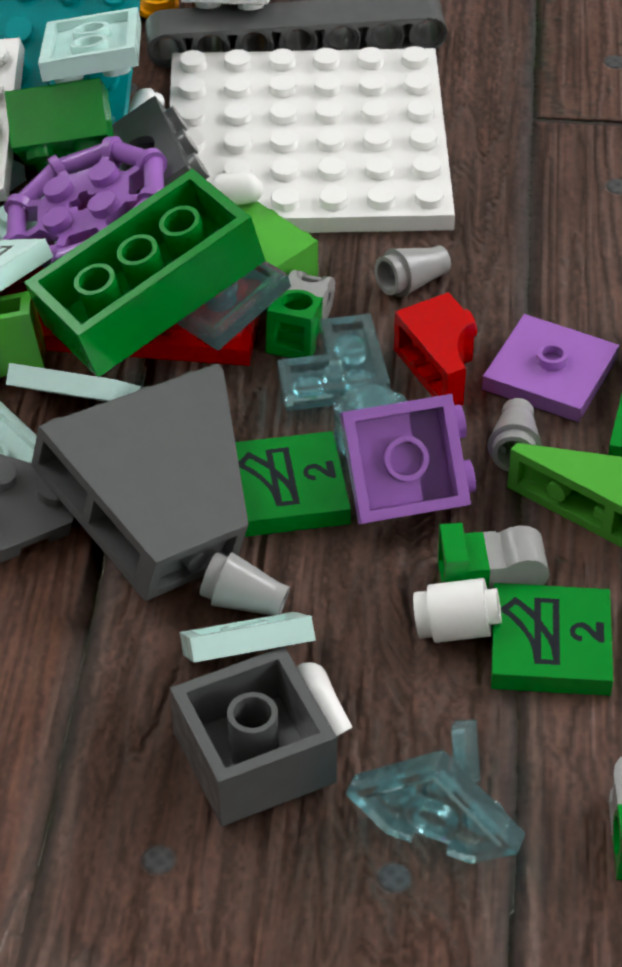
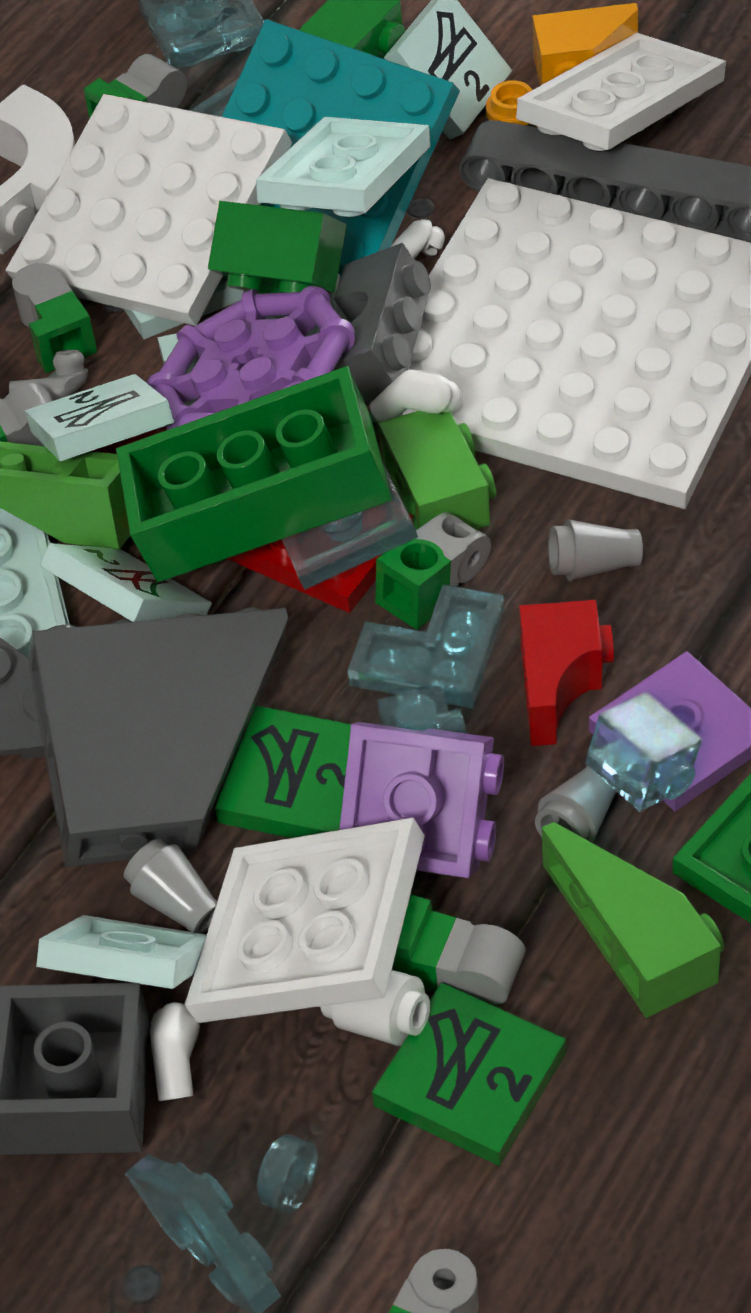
camera: 30 degrees right, 5 degrees up
(378, 568) = (307, 922): none -> white plate
(552, 378) = (643, 751): none -> clear light blue brick

